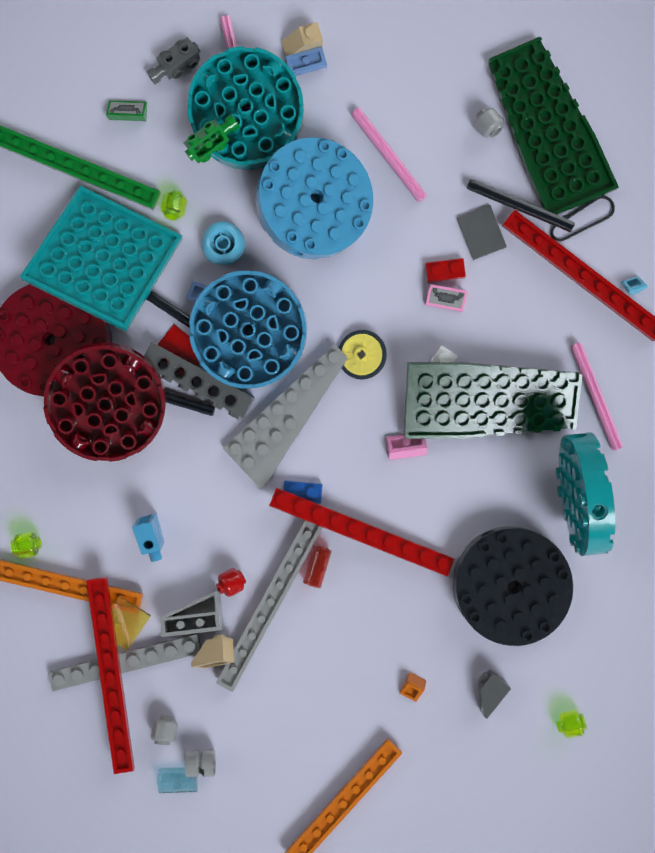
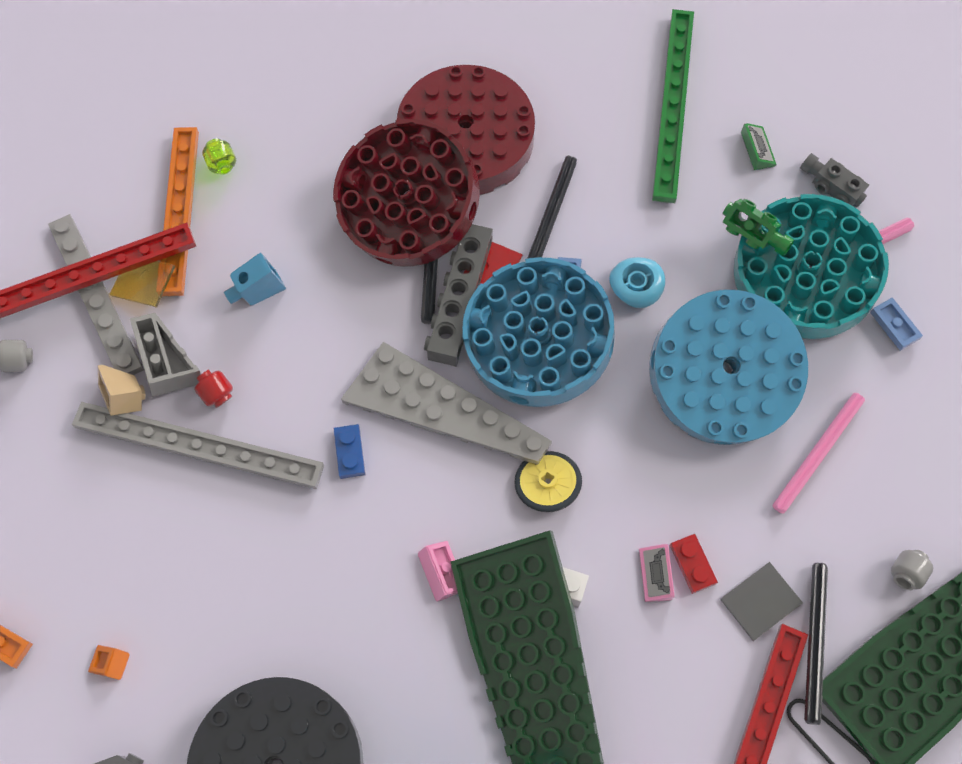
camera: 70 degrees right, 20 degrees down
(102, 258) = (576, 156): teal plate -> none
(174, 205) = (664, 218): clear neon green head -> none
(303, 39) = (923, 313): tan slope -> none
(317, 566) = (254, 491): clear red pin -> none
(361, 532) = (309, 542): red plate -> none

